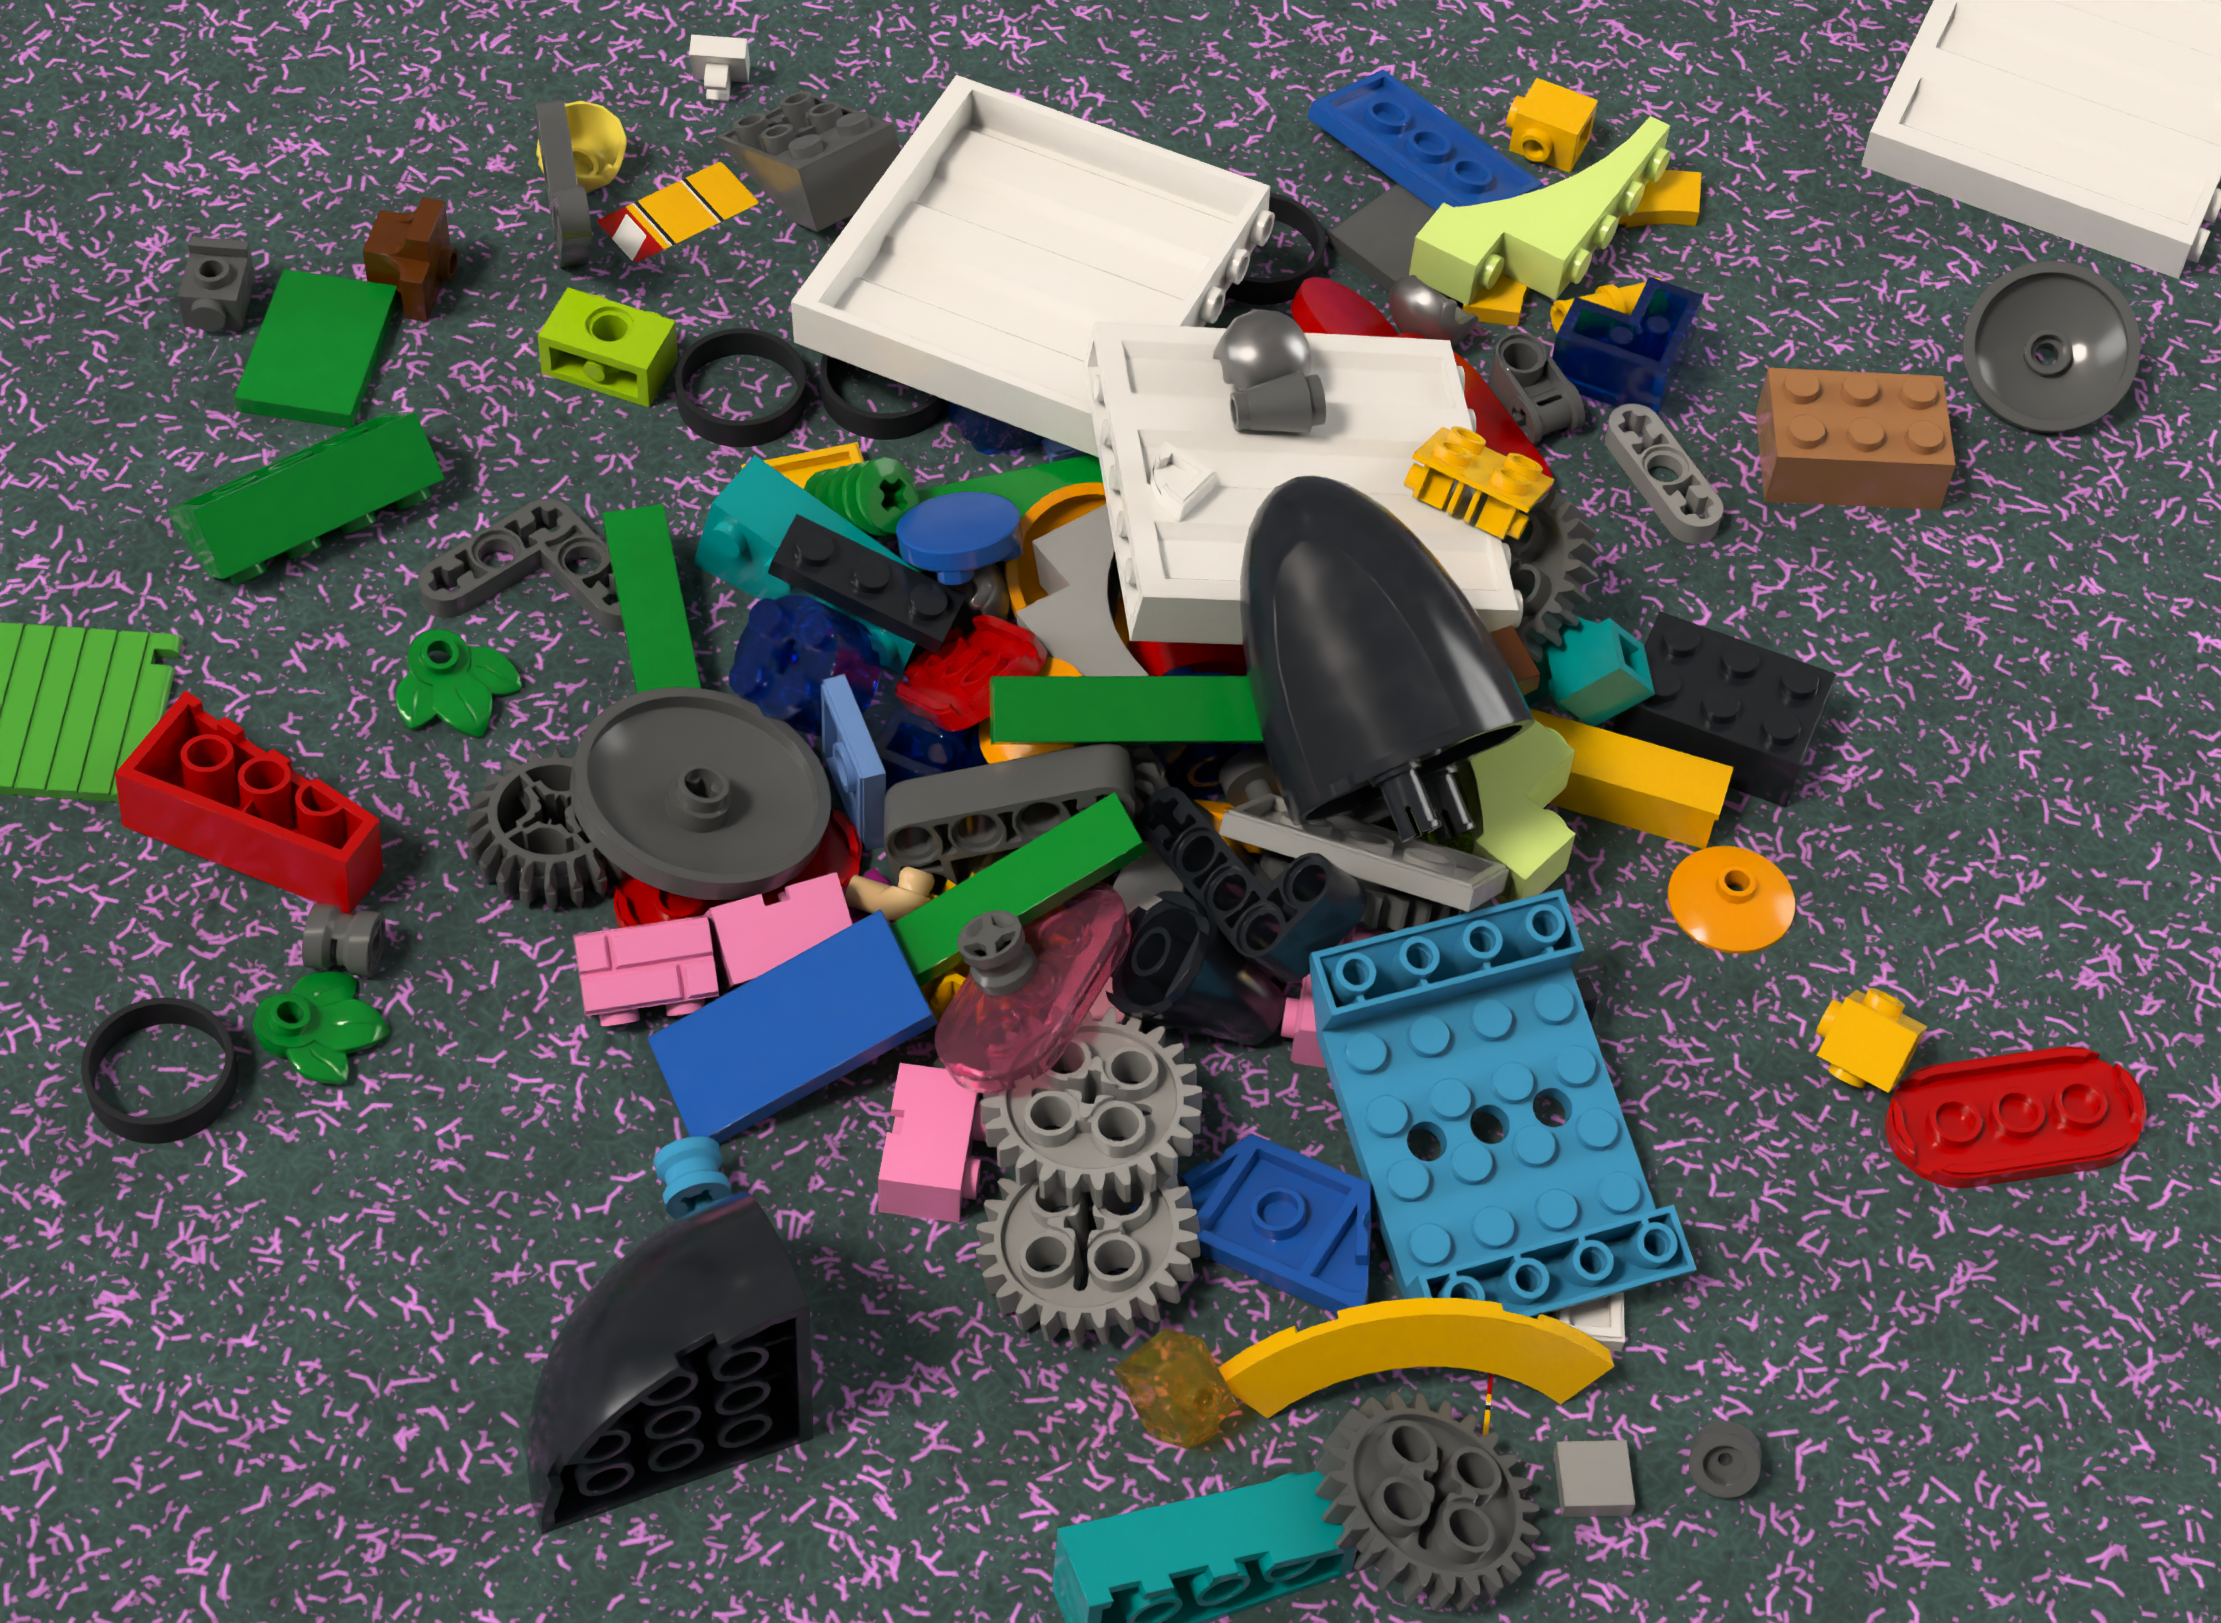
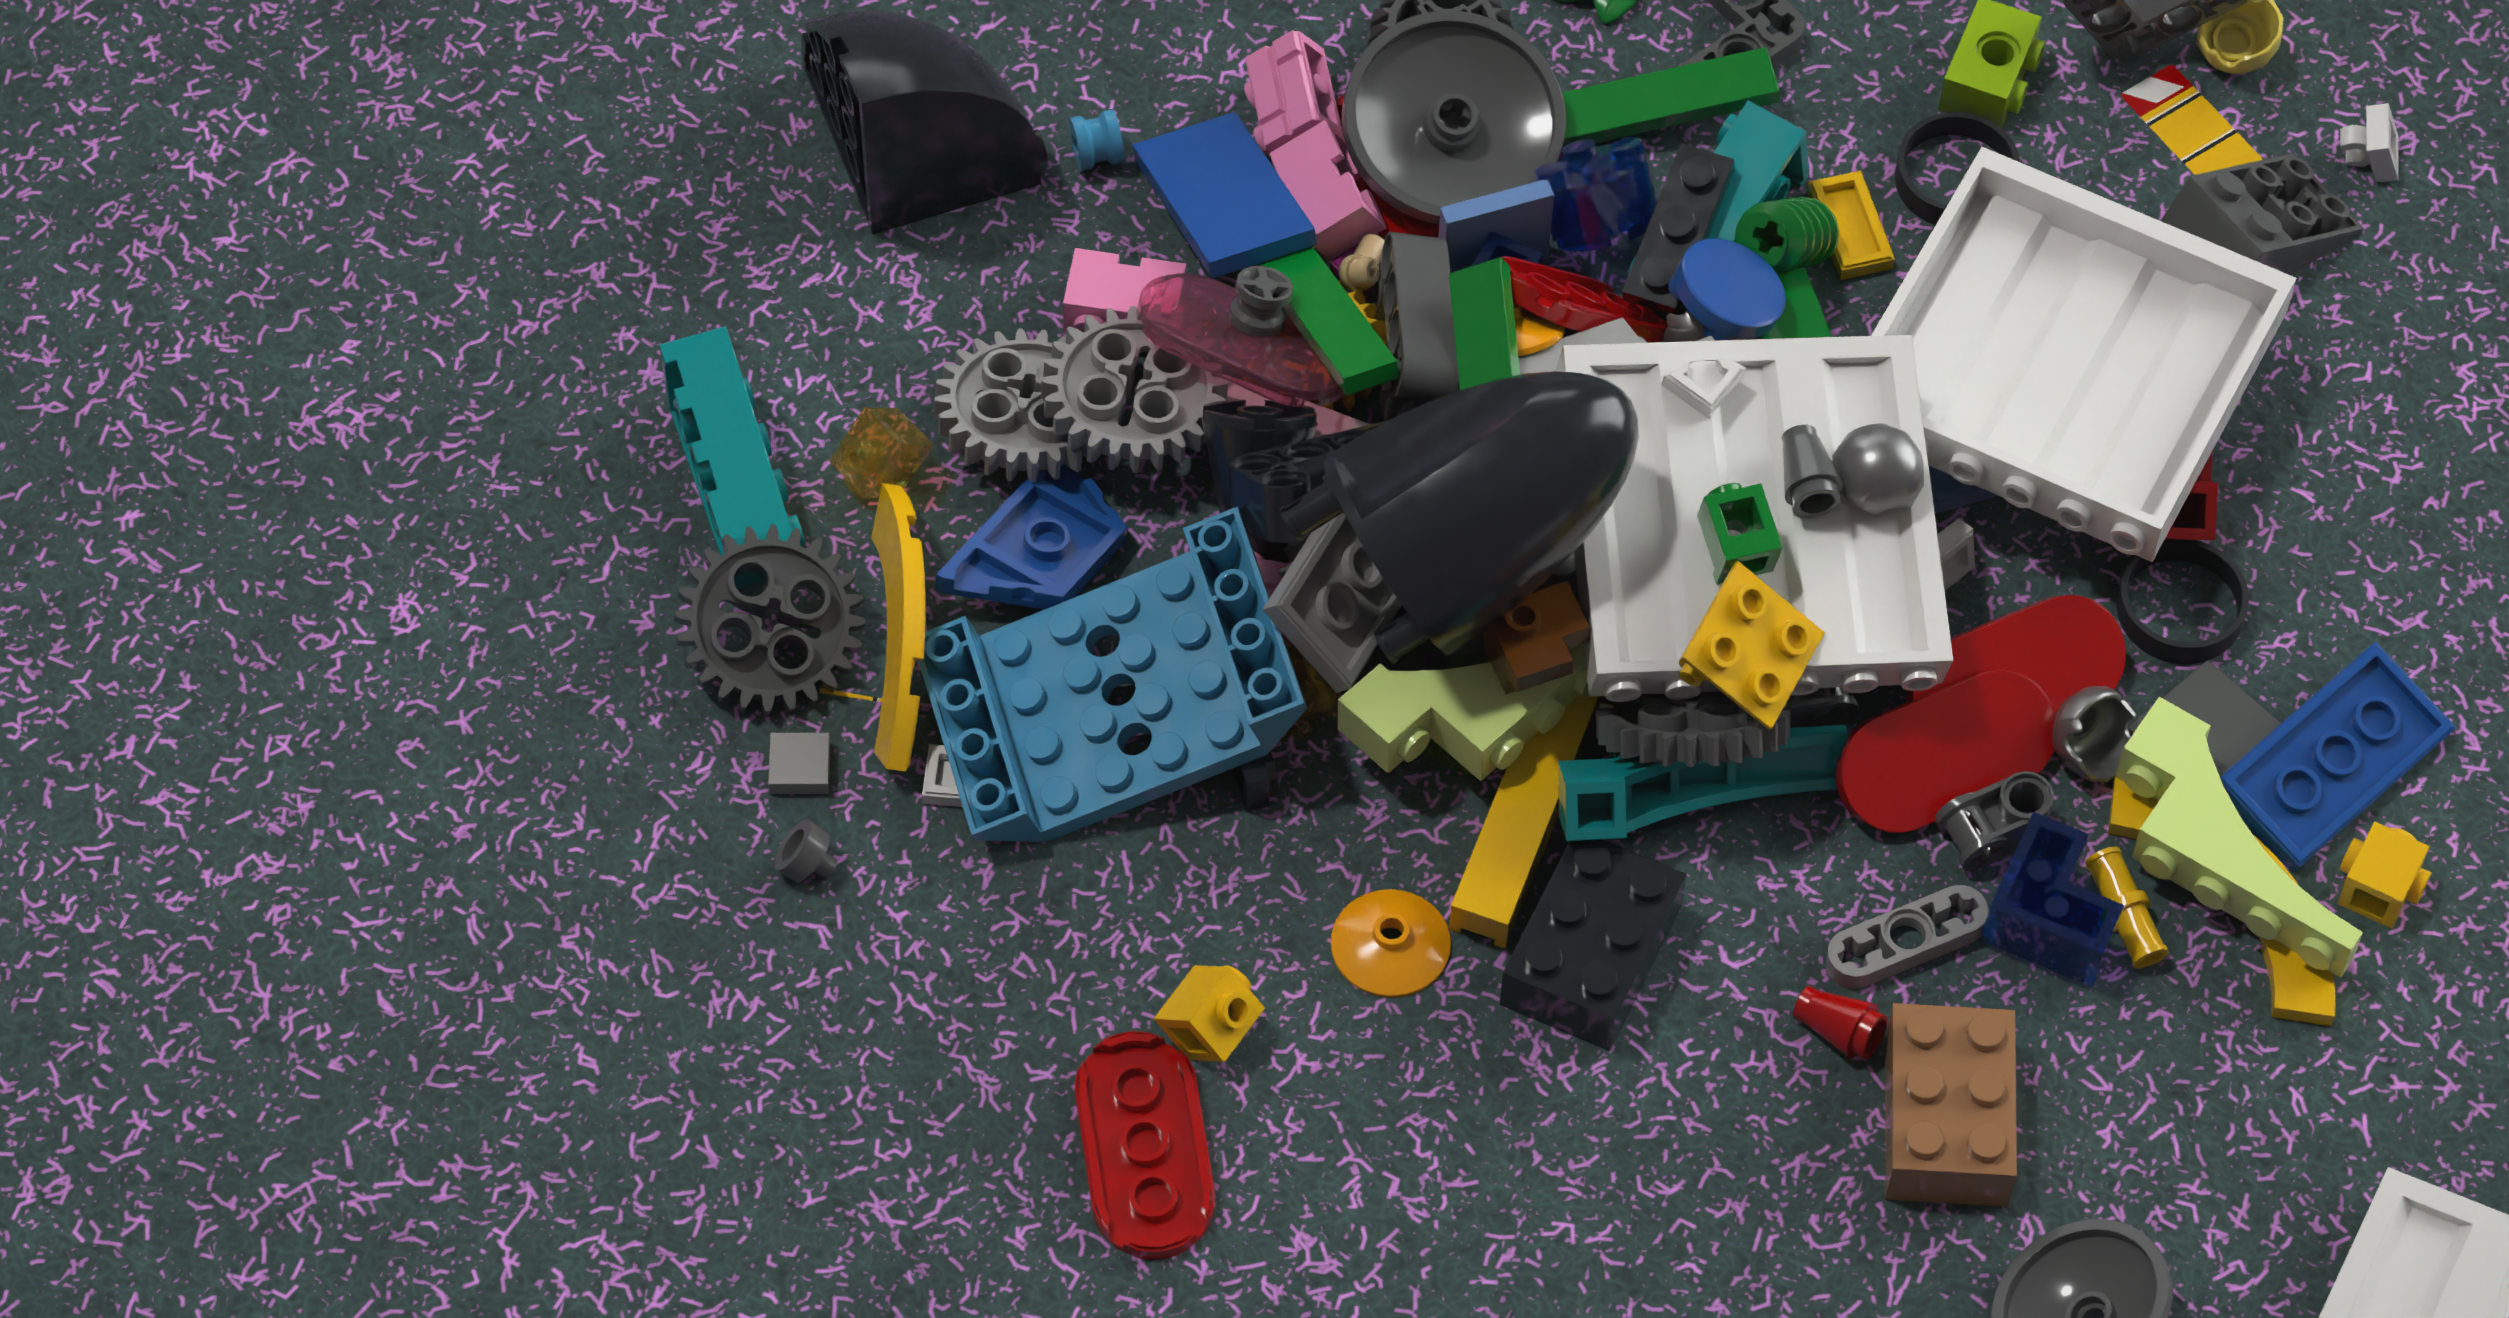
camera: 95 degrees right, 5 degrees up
(1367, 456) = (1748, 513): none -> green brick
(1772, 519) = (1844, 1022): none -> red cone

